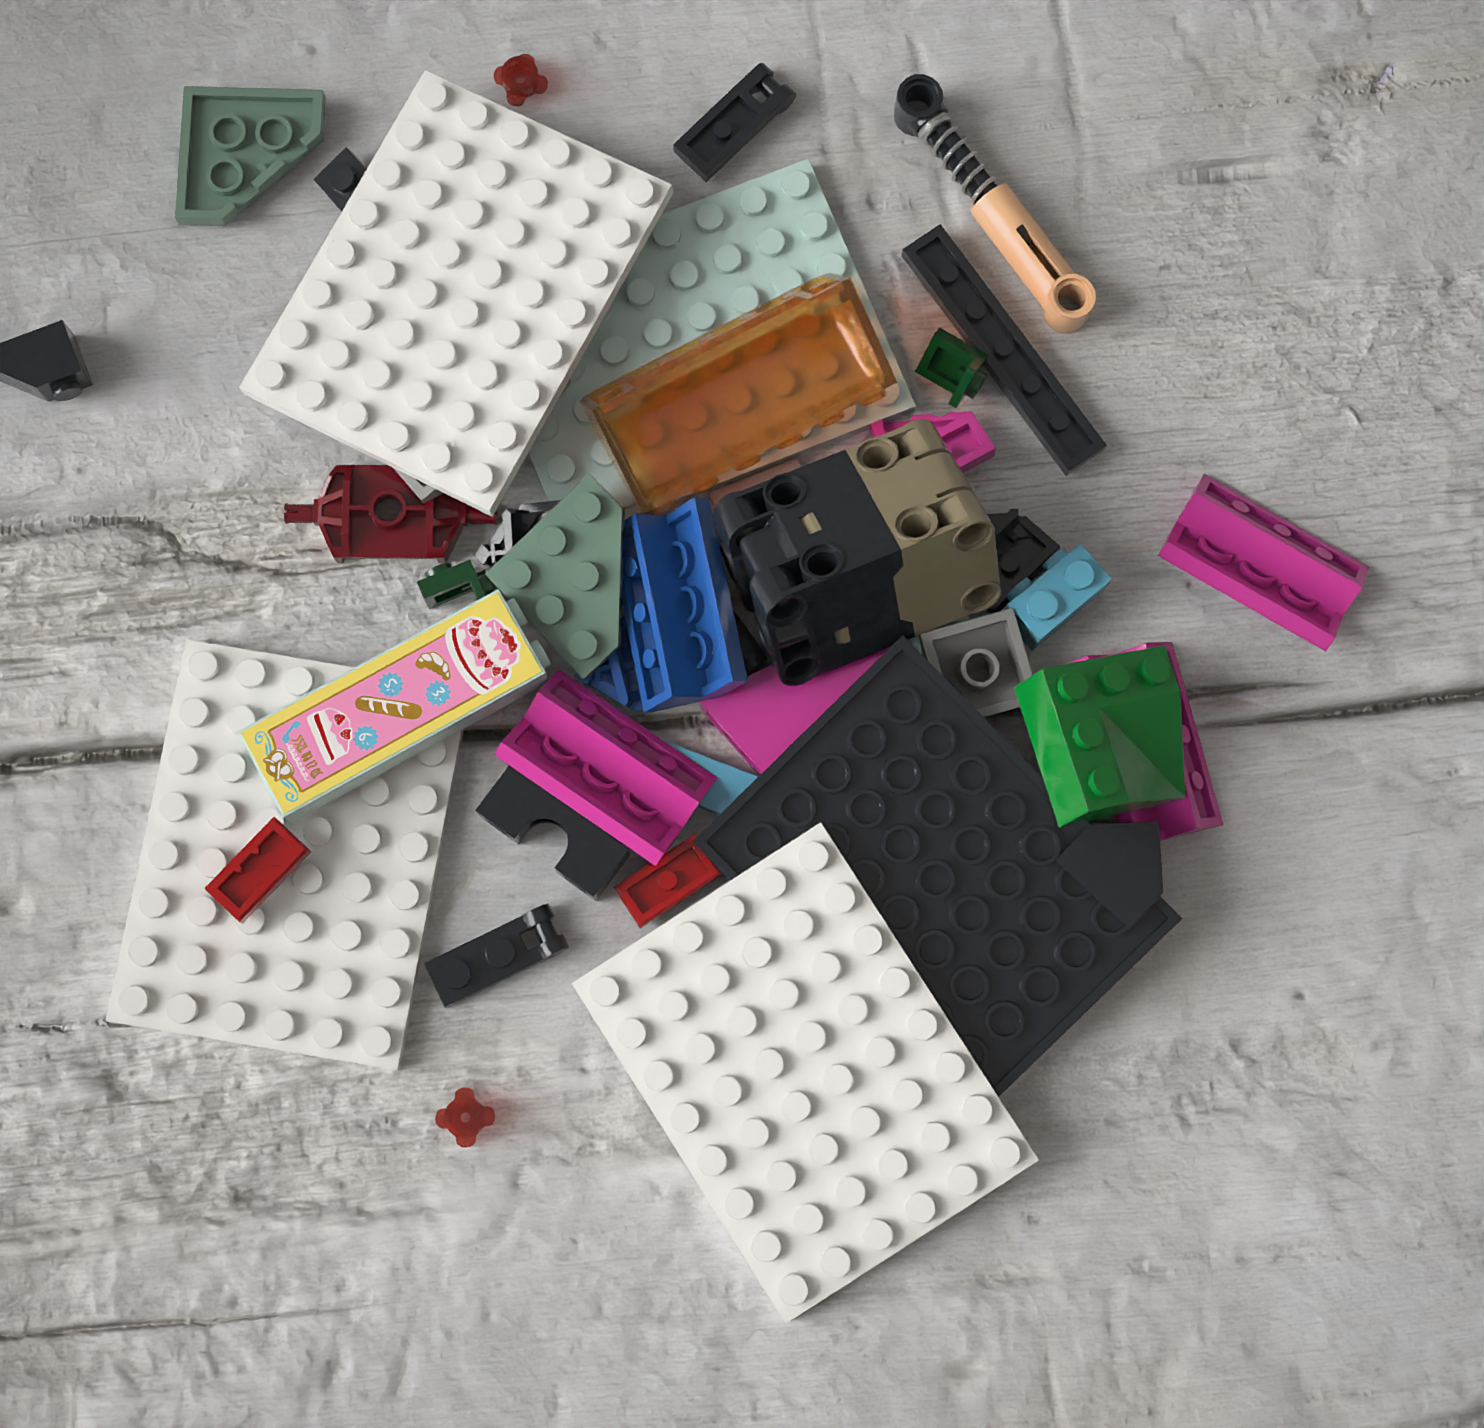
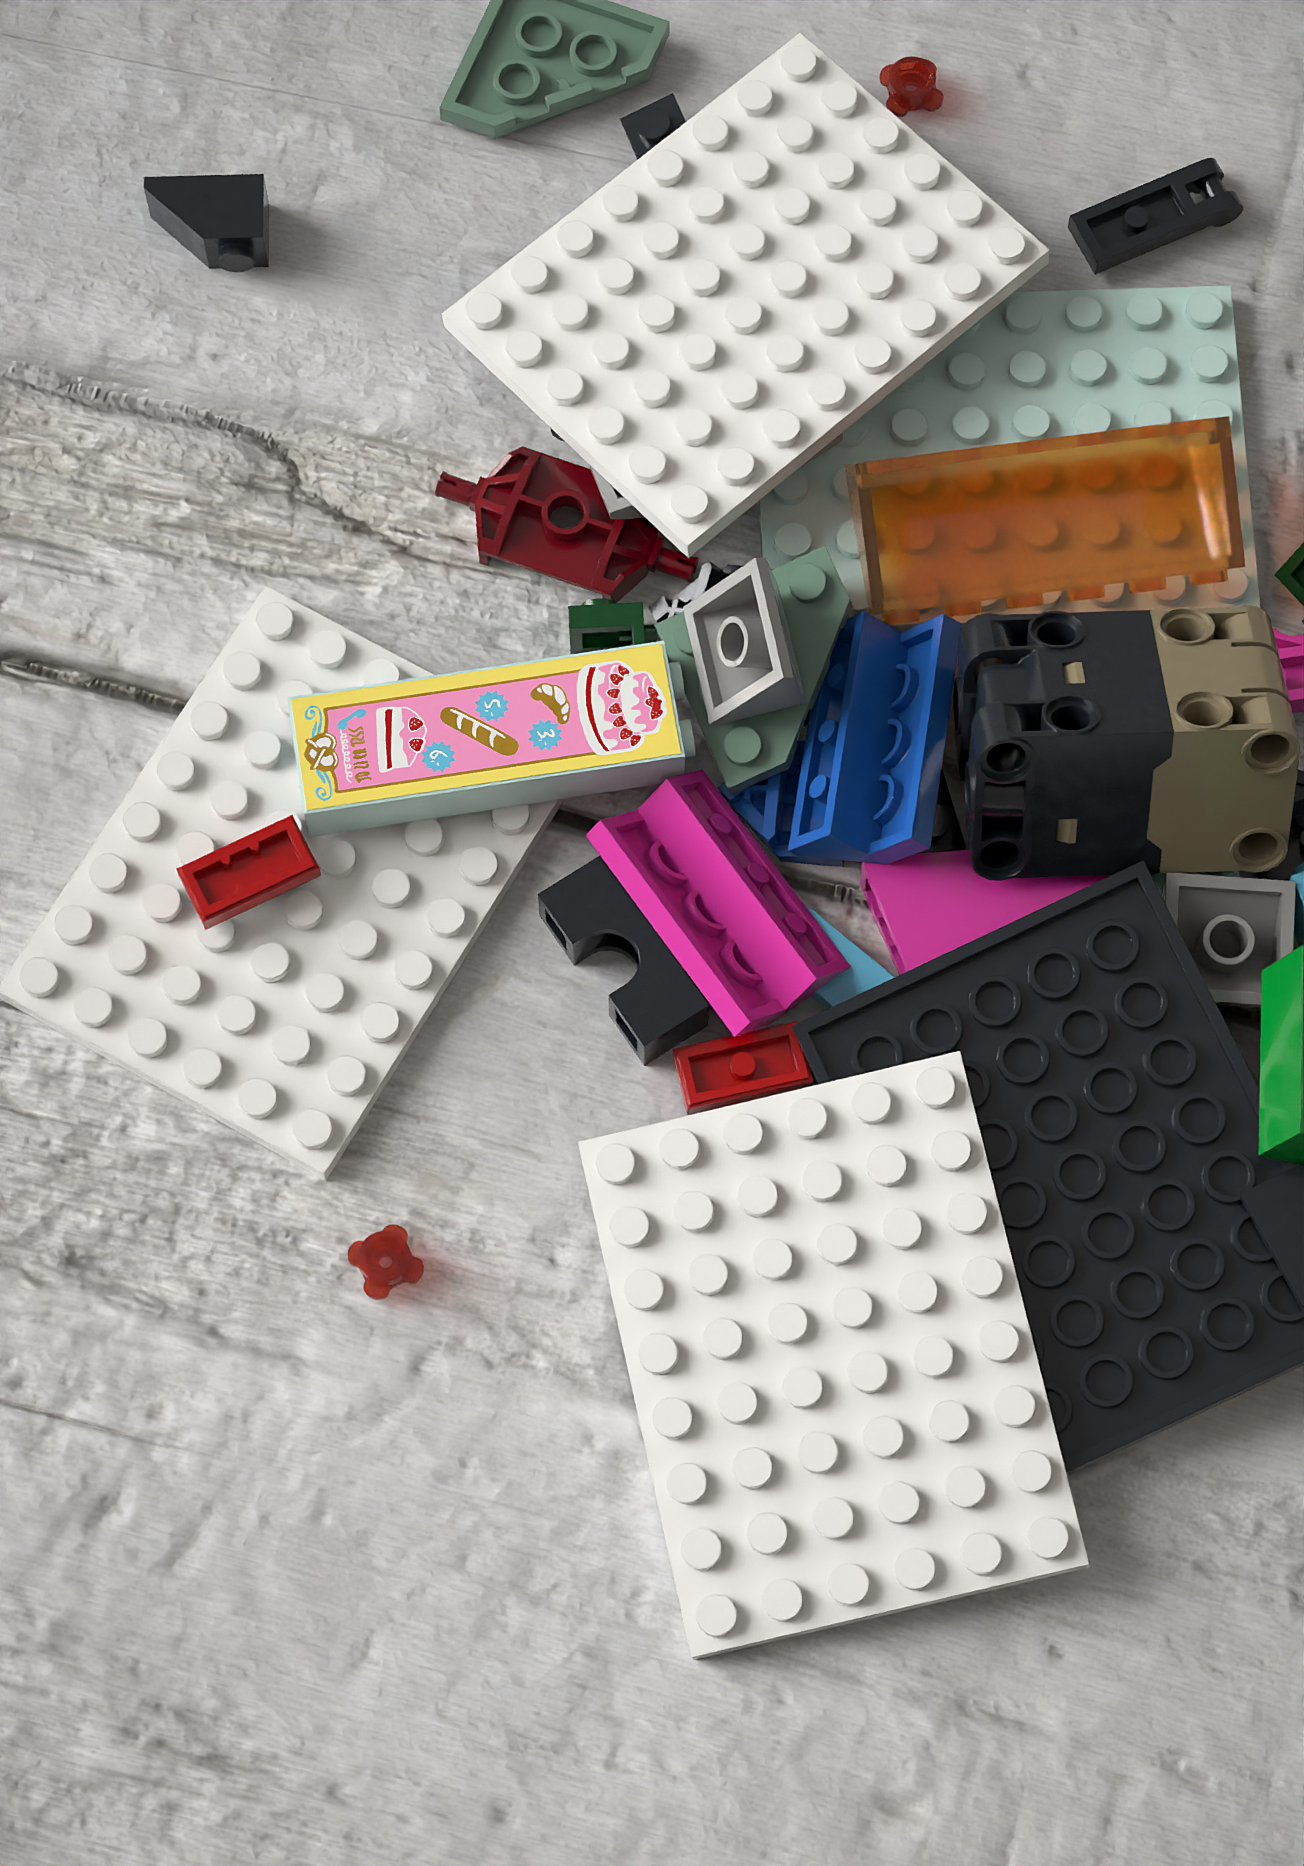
camera: 25 degrees right, 10 degrees down
(494, 956) = (496, 1084): black plate -> none
(558, 574) = (743, 646): none -> light grey slope

